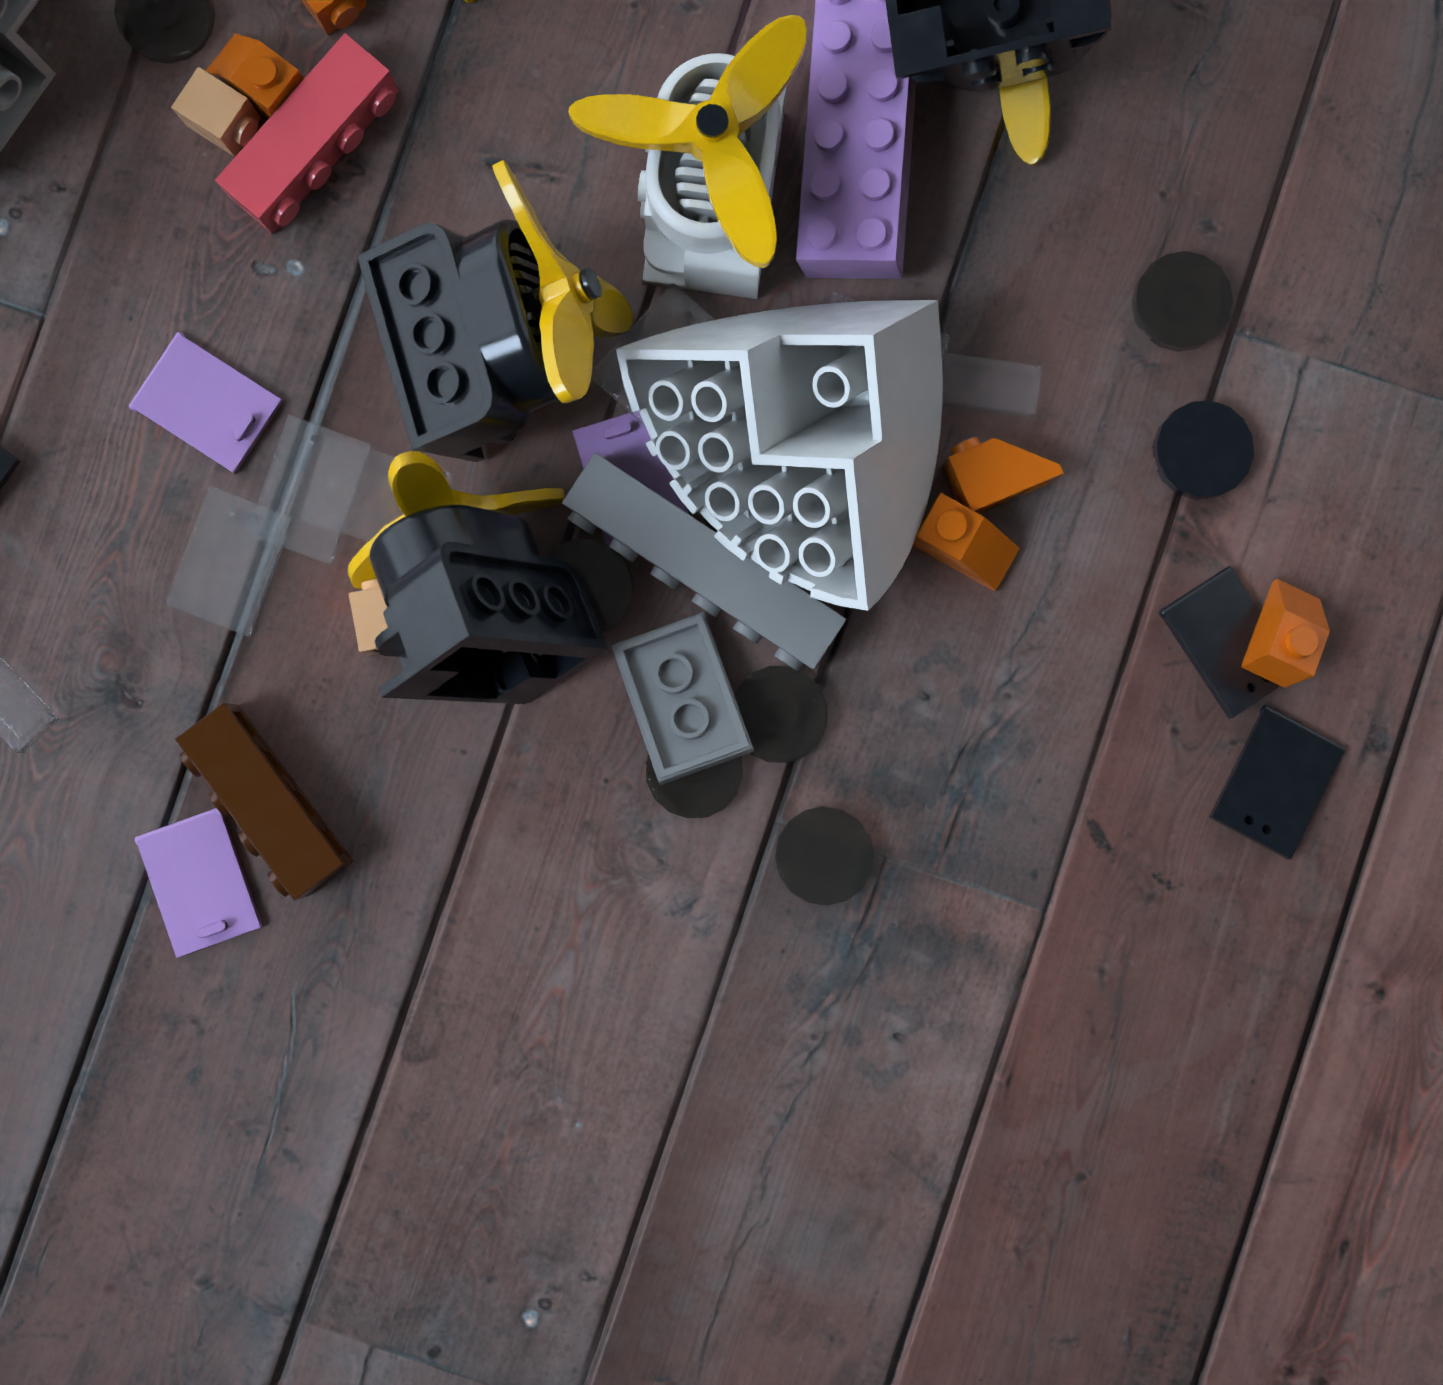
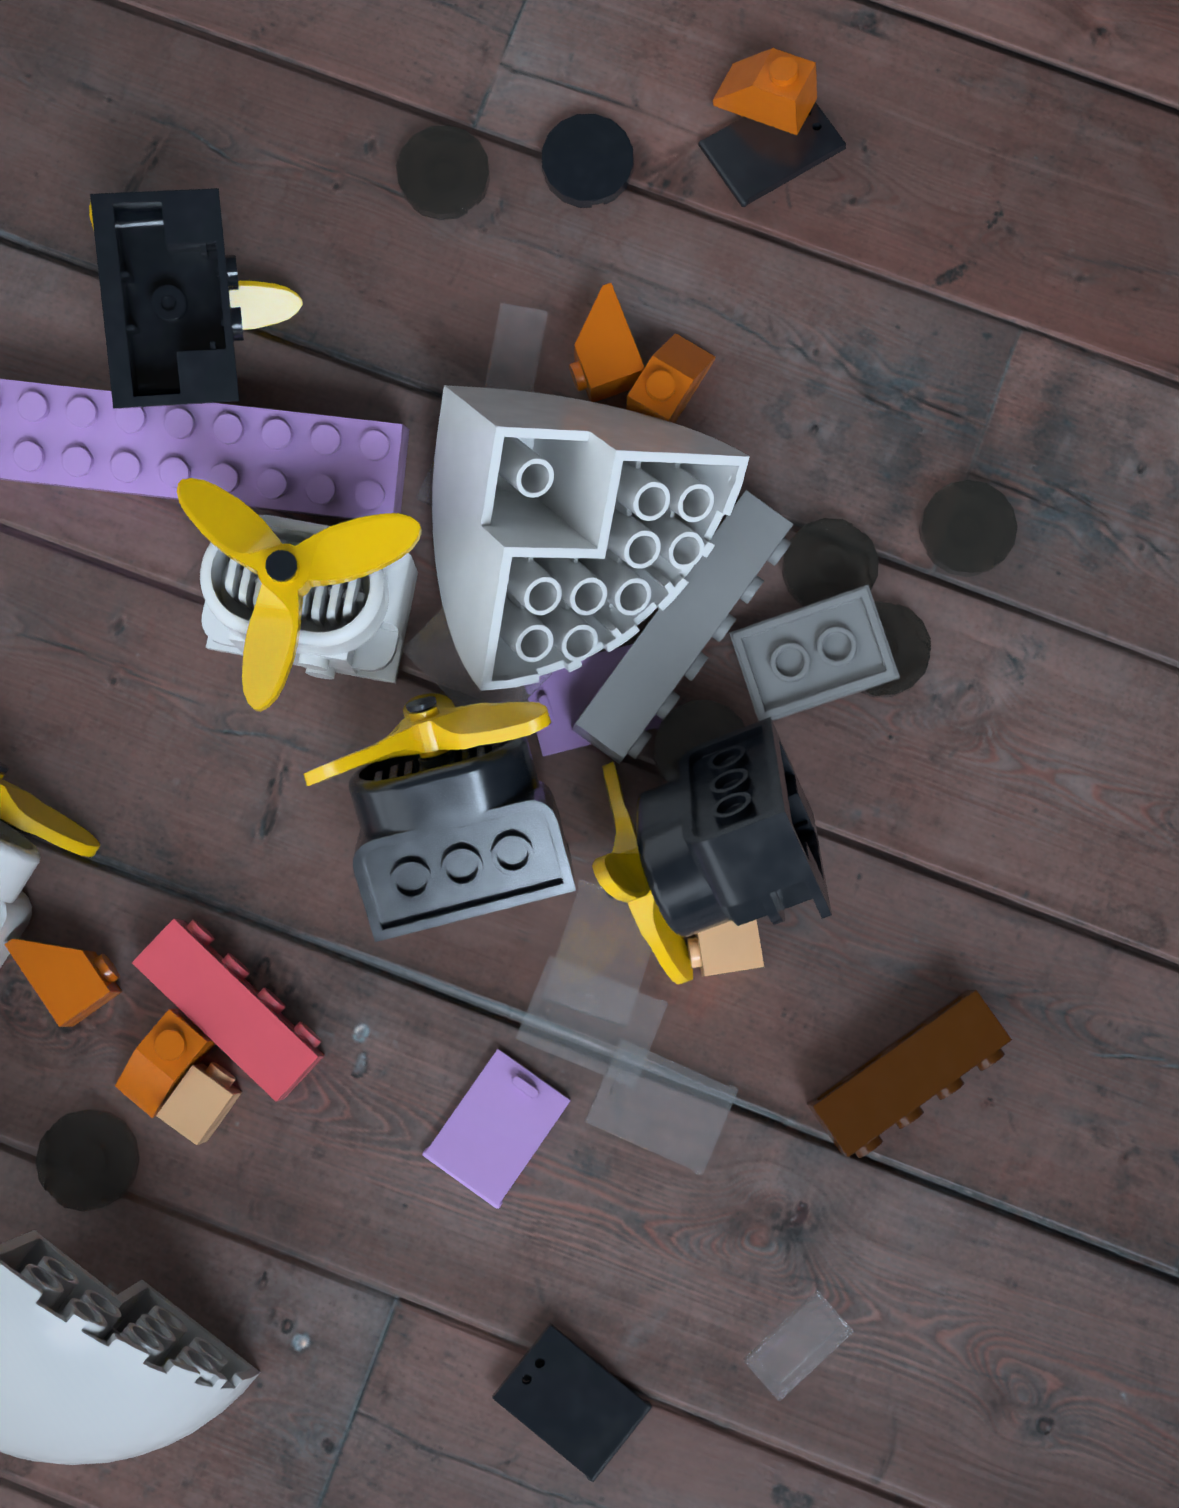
camera: 90 degrees left, 5 degrees down
(198, 882) = (986, 1147): lavender container -> none
(1277, 782) = (904, 110): black container -> none

